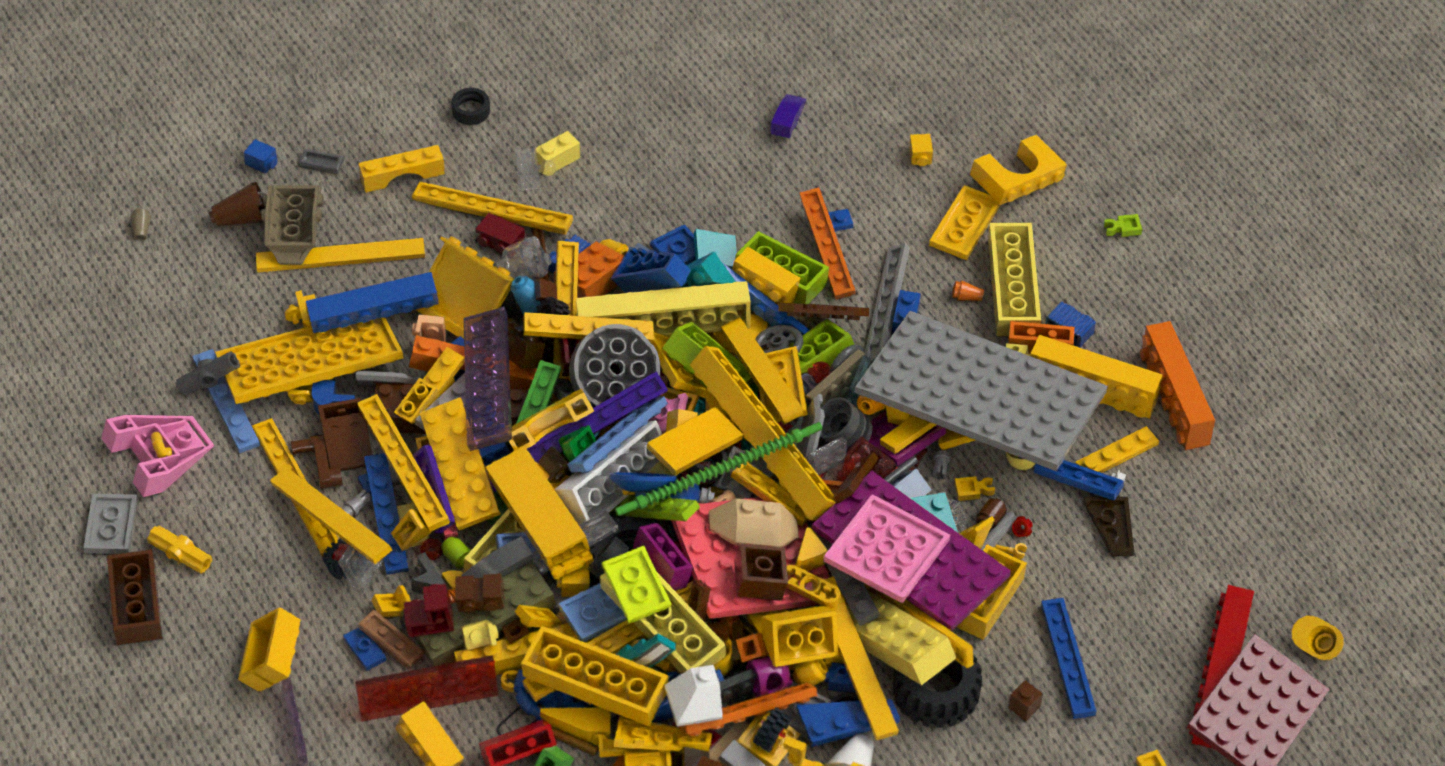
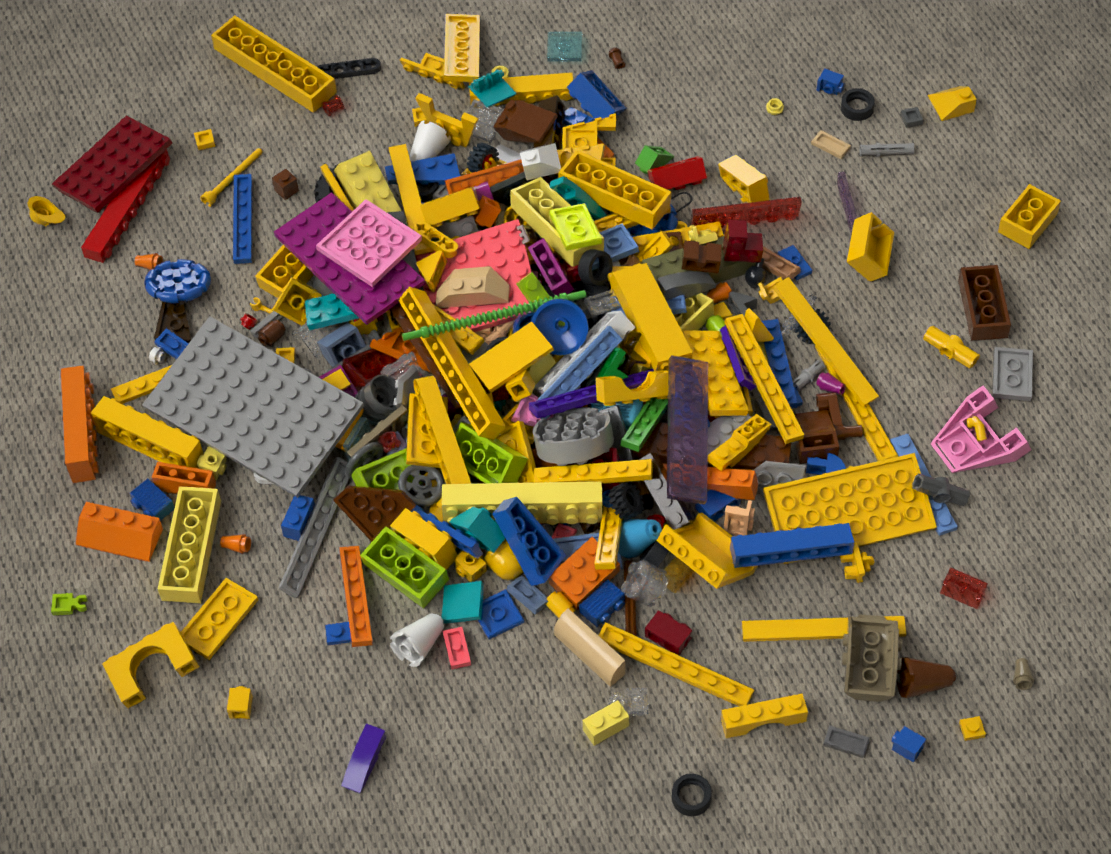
camera: 170 degrees left, 5 degrees up
(63, 713) = (1029, 216): none -> yellow brick
(191, 298) = (963, 588): none -> clear red hinge
(196, 179) = (972, 728): none -> yellow plate
(329, 492) = (829, 383): none -> magenta cone
(545, 289) = (629, 524): reddish brown tile -> none
(584, 217) = (589, 647): none -> tan brick
(714, 212) = (456, 648): none -> coral plate
(755, 209) = (417, 639): none -> white cone
(761, 572) = (473, 238): reddish brown brick -> none
(855, 478) = (380, 325): reddish brown tile -> none
(1096, 296) = (118, 531): none -> orange slope
(1119, 683) = (210, 196): none -> yellow piece
(1131, 555) = (163, 281): none -> blue plate
(1165, 592) = (148, 261): none -> orange cone

